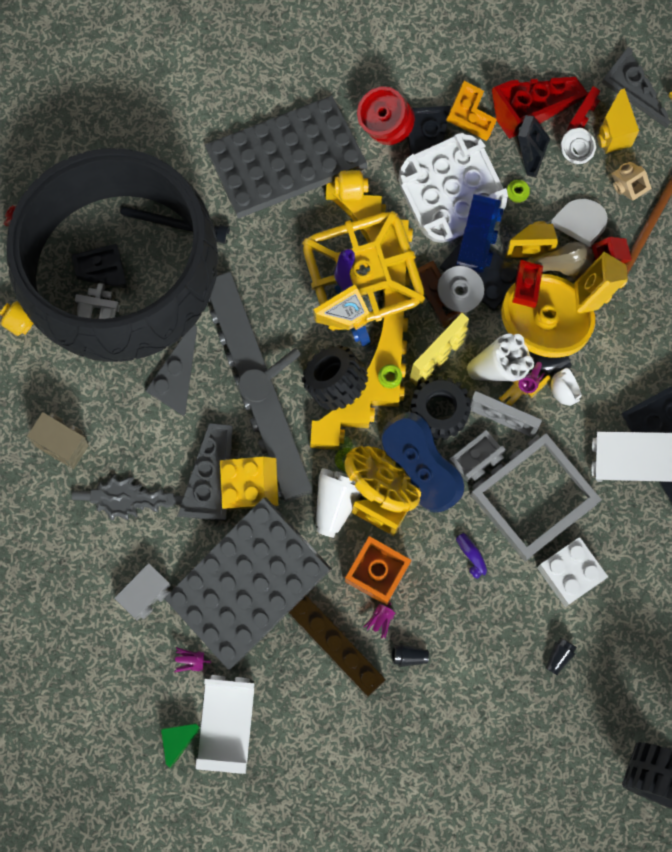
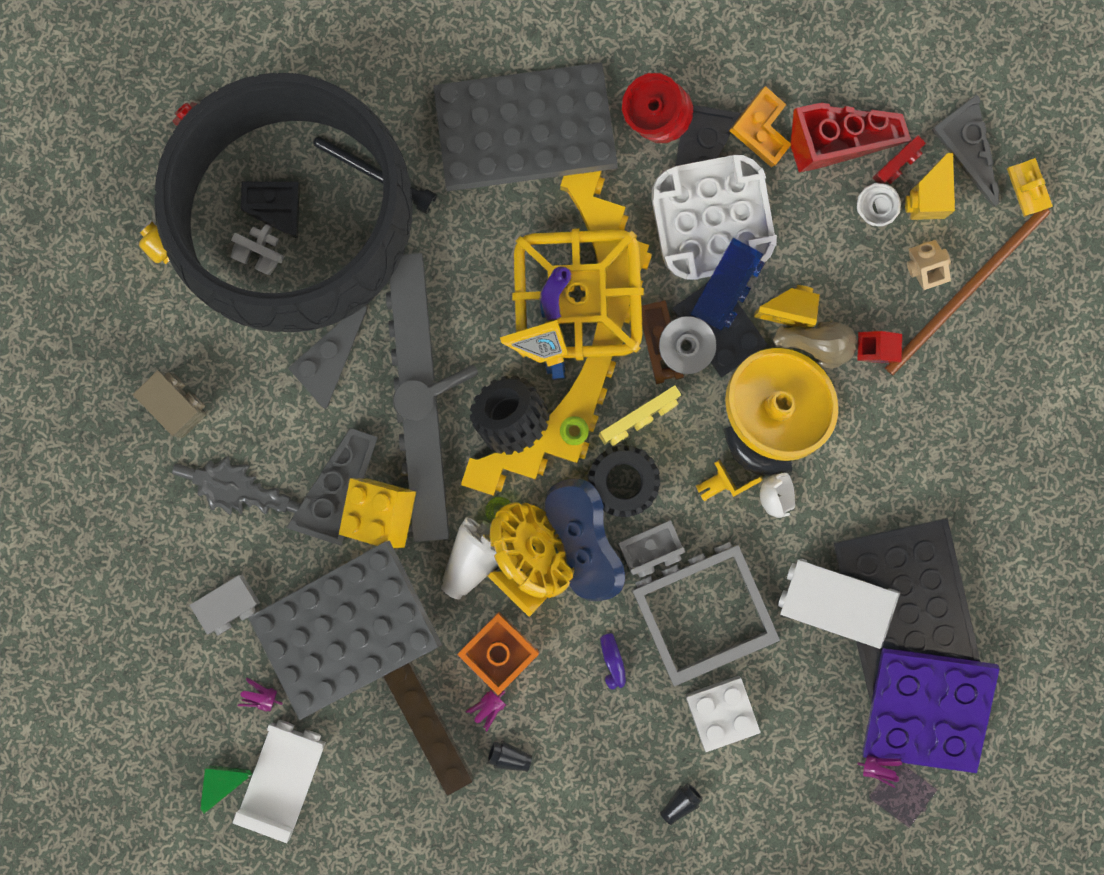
camera: 25 degrees right, 10 degrees up
(351, 185) = (590, 187): yellow head -> none
(502, 360) = (711, 448): white cone -> none
(504, 414) = (696, 510): light grey tile -> none
(515, 197) = (785, 246): lime plate -> none
(527, 284) = (767, 361): red plate -> none
(530, 382) = (735, 481): magenta piece -> none
(533, 144) = (824, 189): black wing -> none
(582, 220) = (856, 297): white tile -> none
(599, 283) = (852, 383): yellow slope -> none

